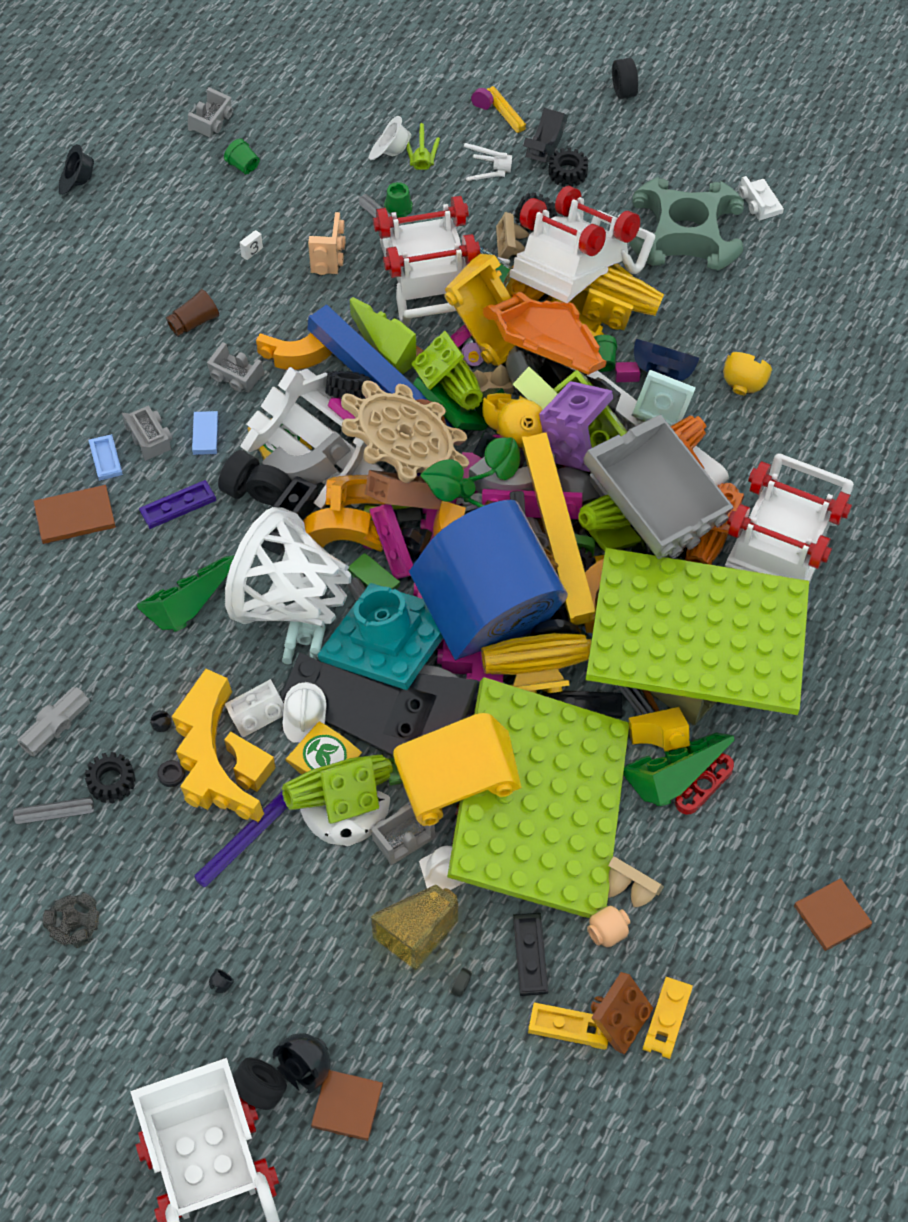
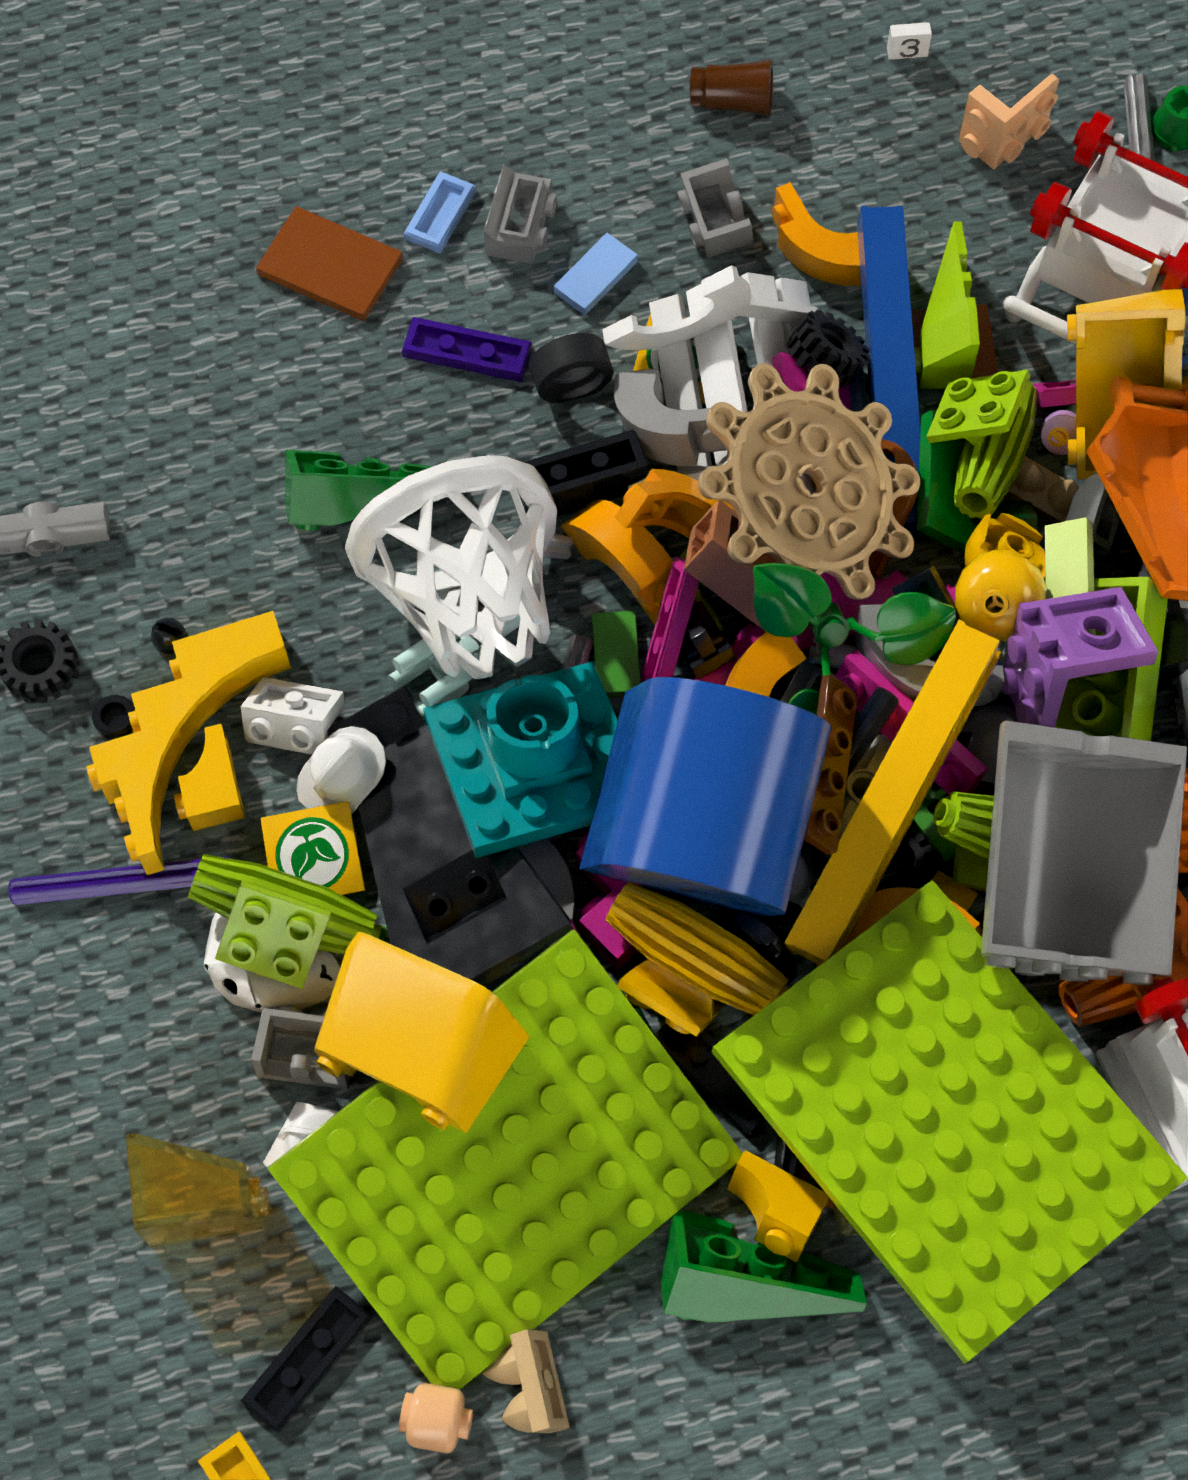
camera: 45 degrees right, 10 degrees up
(267, 484) = (593, 409): black tyre -> none
(461, 982) = (181, 1318): pearl dark grey tile -> none
(716, 781) = (803, 1342): red beam -> none

